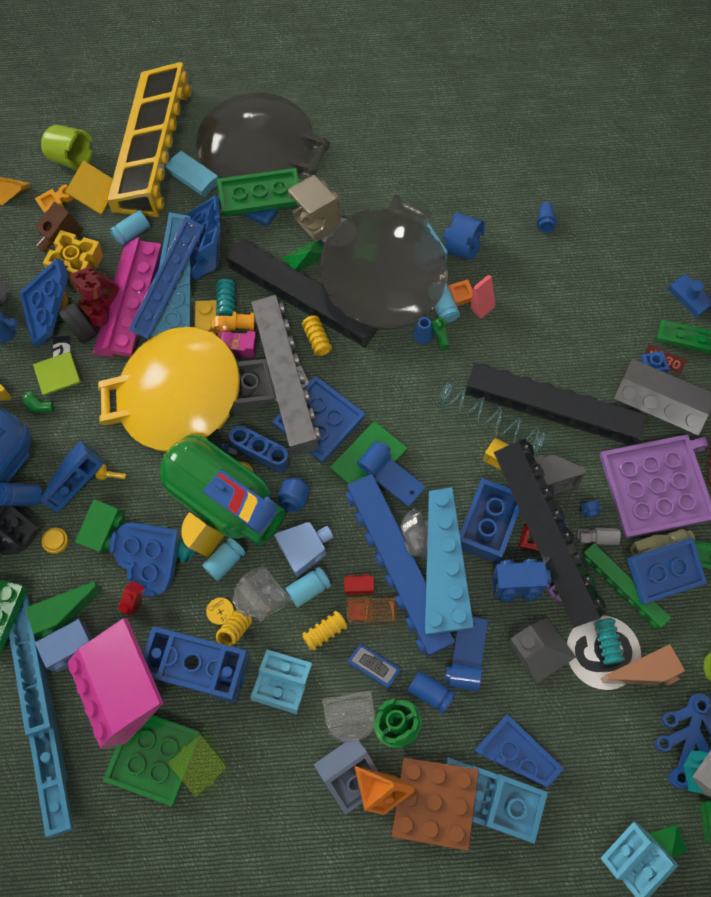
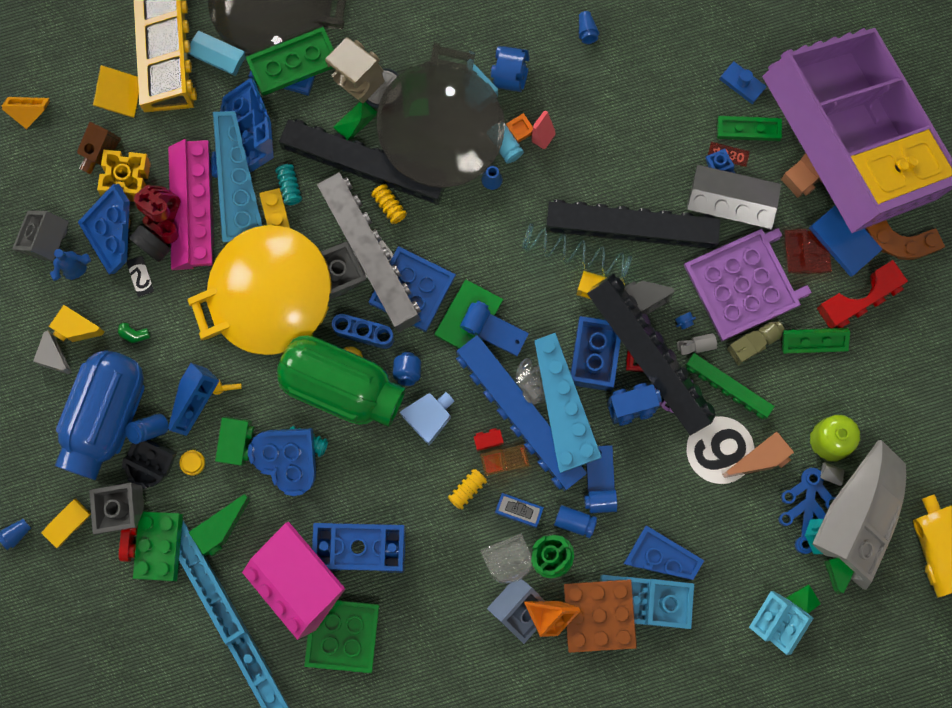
camera: 15 degrees left, 10 degrees up
(46, 199) = (79, 115): light orange plate -> none
(56, 373) = (143, 298): lime piece -> none
(62, 644) = (233, 558): medium blue brick -> none
(66, 146) = (77, 51): lime cylinder -> none
(129, 228) = (170, 128): medium azure piece -> none
(131, 598) = (282, 501): red piece -> none
(166, 278) = (228, 180): blue tile -> none
(197, 765) = (384, 633): clear neon green piece -> none
(200, 535) = (331, 428): yellow brick -> none
(219, 611) = (366, 493): yellow piece -> none
(223, 559) = (357, 444): medium azure piece -> none
(225, 447) = (332, 340): dark blue piece -> none
(233, 322) = (307, 206): light orange connector -> none
(233, 629) = (385, 506): yellow piece -> none
(240, 344) = (315, 229): dark pink leg -> none
(241, 501) = (366, 392): blue door -> none
(259, 594) = (399, 470): clear slope -> none
(281, 681) = (439, 543): medium azure slope -> none
(308, 587) = (442, 452): medium azure piece -> none
(440, 331) = (507, 171): green arm -> none
(541, 649) = (665, 461): dark grey slope -> none
(609, 641) = (723, 440): teal piece -> none
(666, 570) = (763, 364): blue tile -> none

